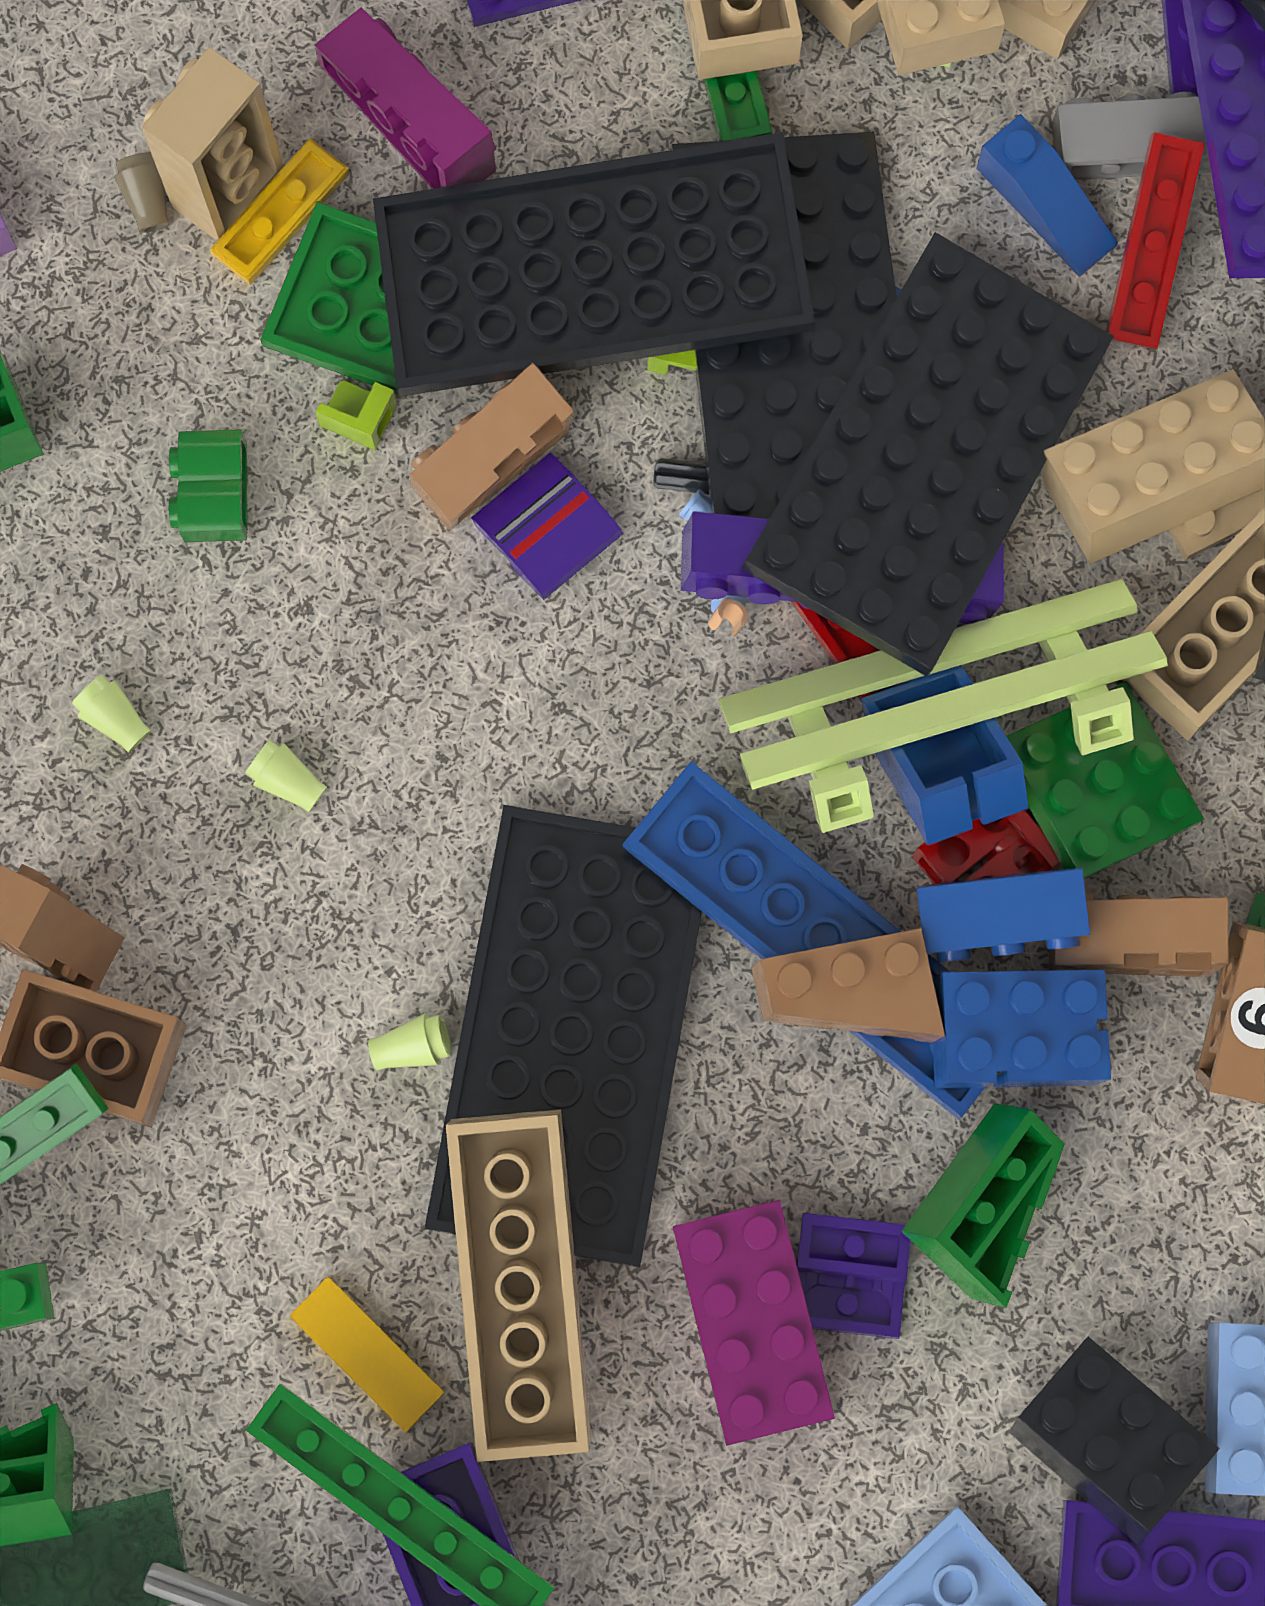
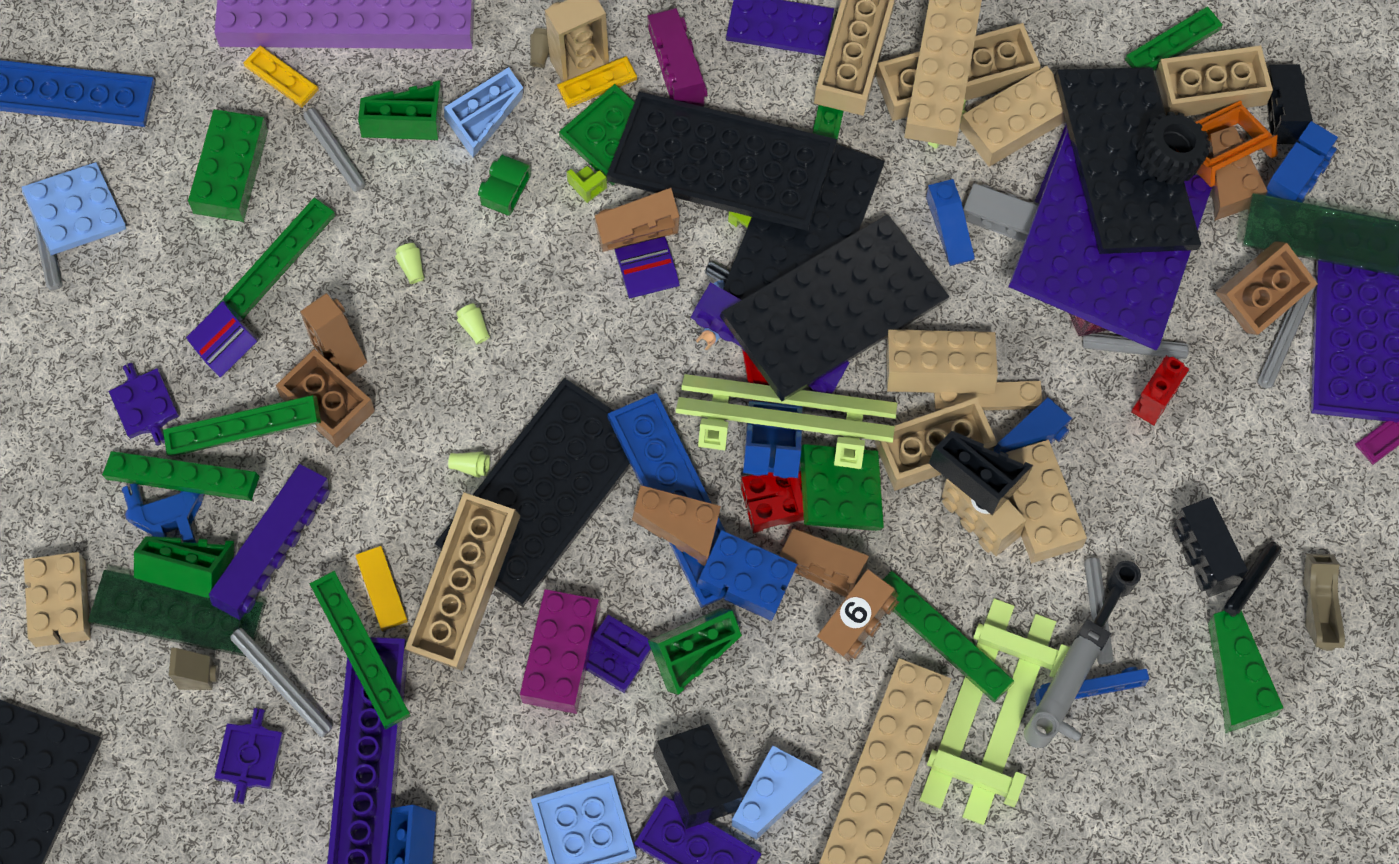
camera: 25 degrees right, 10 degrees down
(101, 360) = (483, 110): none -> light blue wedge
(123, 1372) = (269, 542): none -> dark purple brick
(1003, 913) = (763, 518): blue brick -> none
(1154, 240) = (988, 261): red plate -> none

